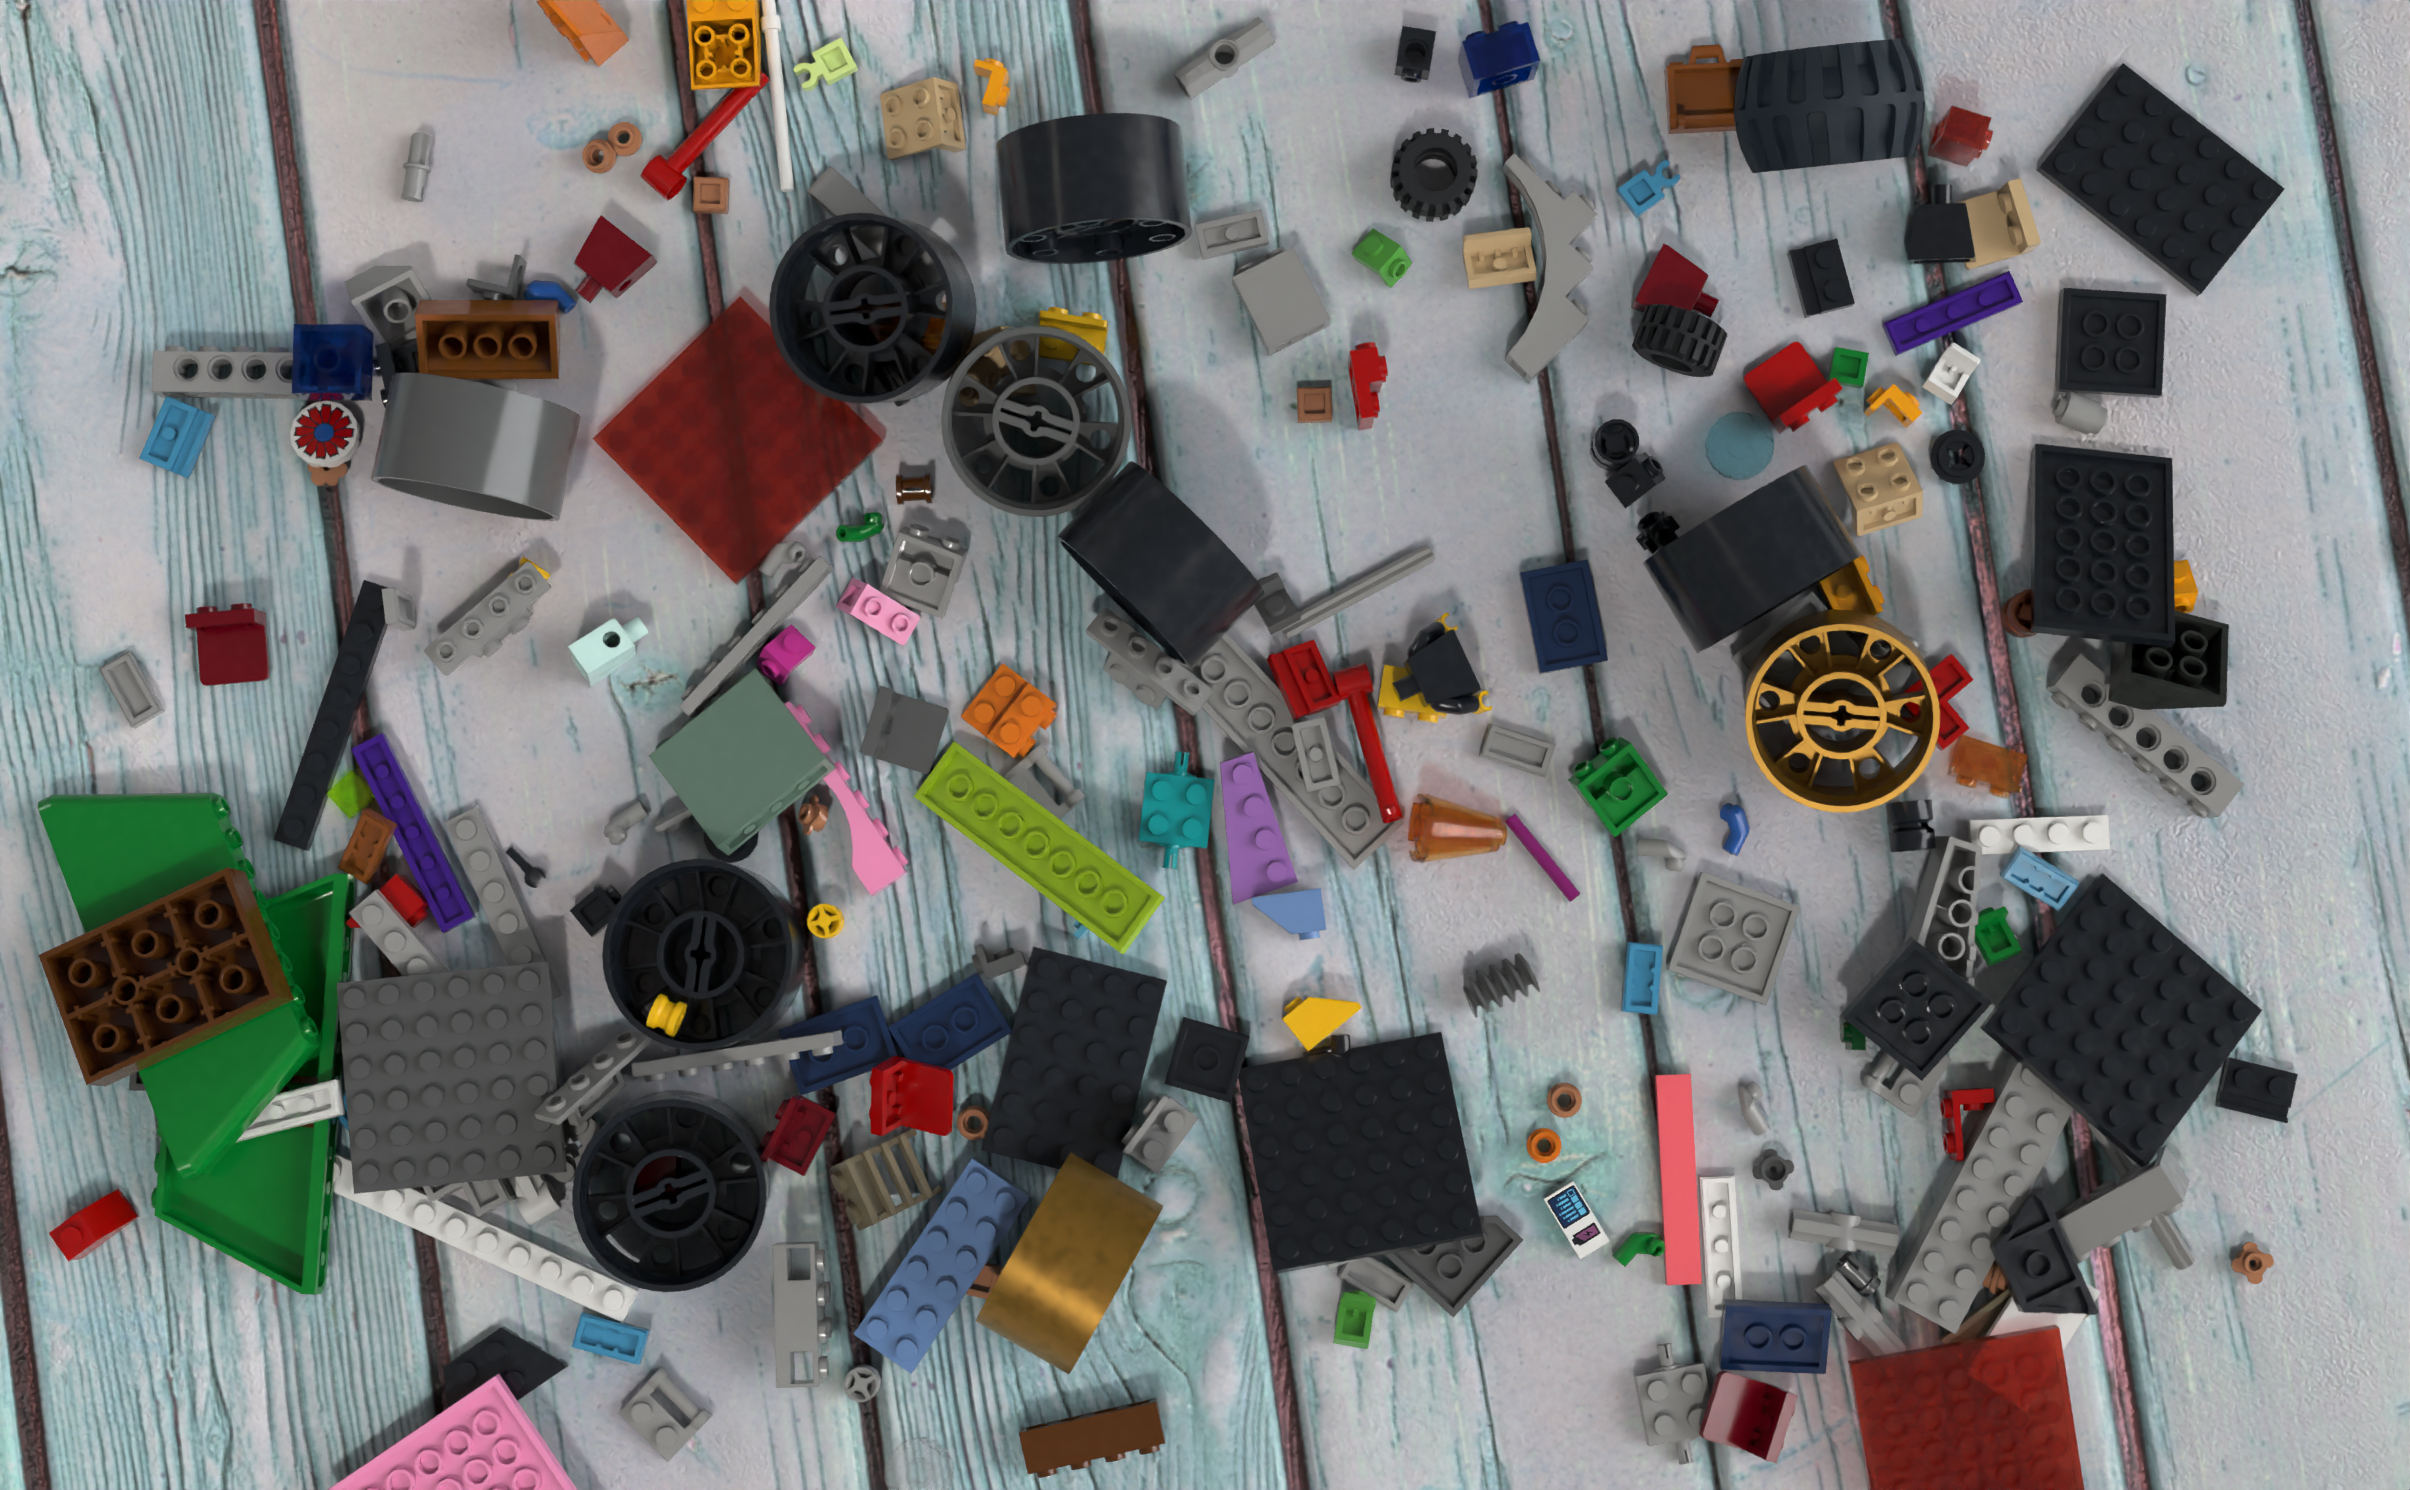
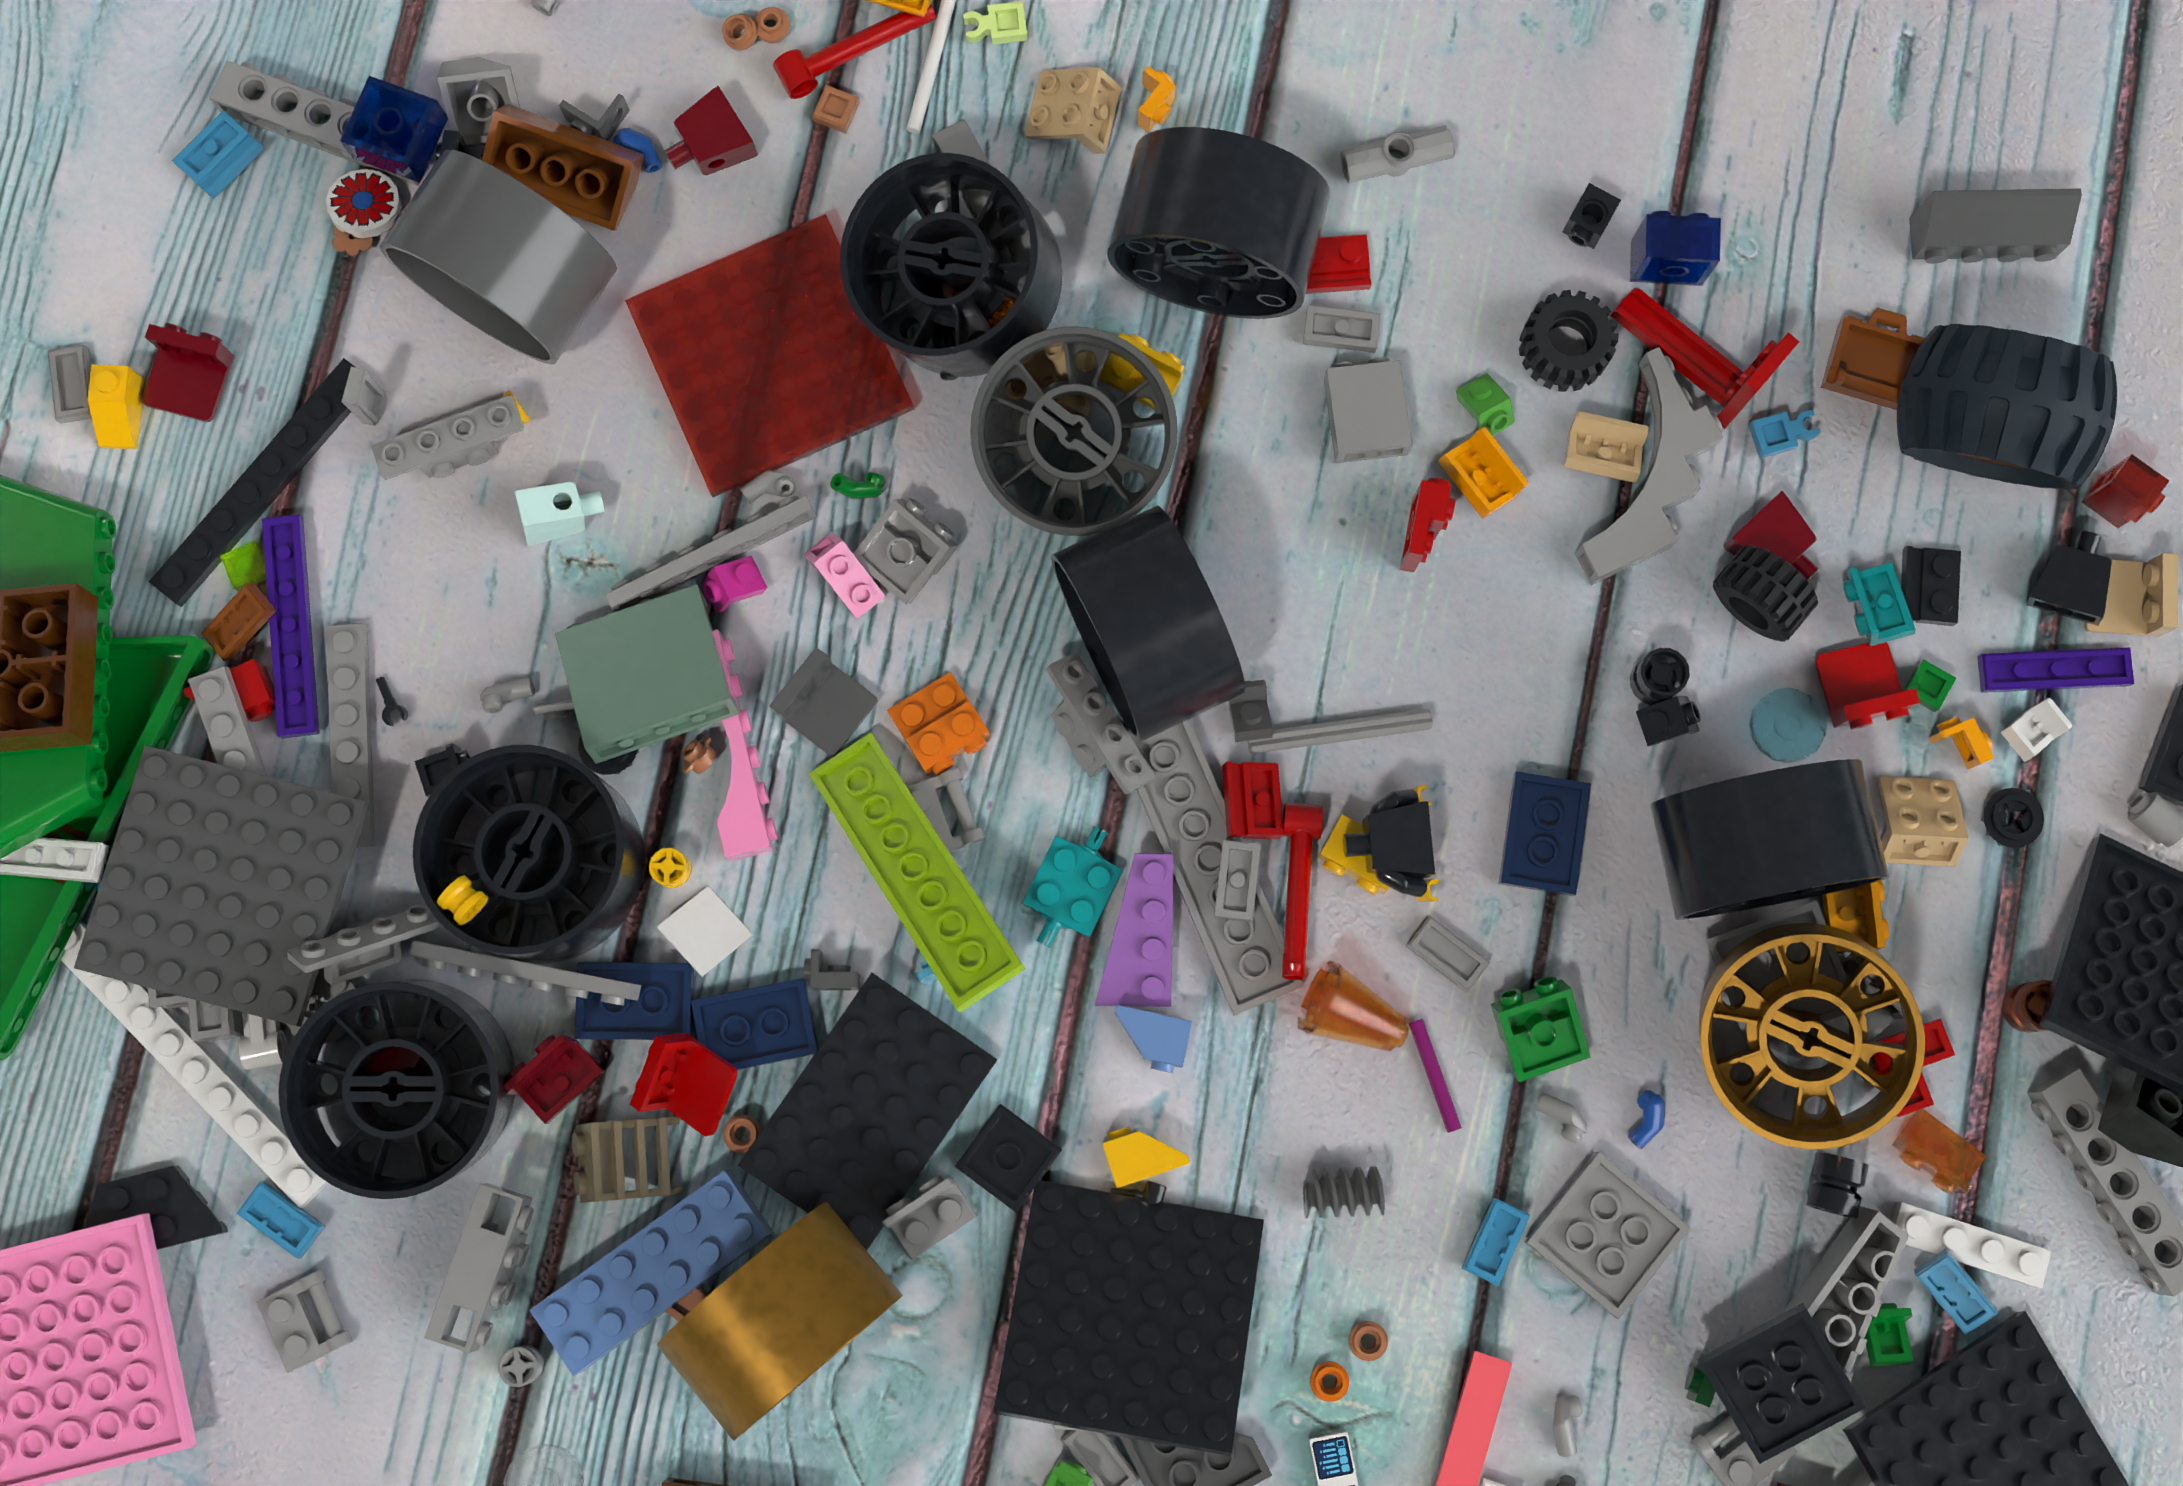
camera: 15 degrees right, 5 degrees down
(181, 696) = (115, 405): none -> yellow slope
(876, 963) = (704, 931): none -> white sticker
(903, 483) = (939, 462): reddish brown bush -> none
(1211, 176) = (1340, 265): none -> red plate
(1314, 404) = (1364, 527): nougat tile -> none
(1401, 319) = (1483, 472): none -> light orange bracket
(1550, 148) = (1696, 357): none -> red bracket
(1656, 531) = (1672, 778): black gear -> none
(1782, 312) = (1879, 604): none -> teal bracket

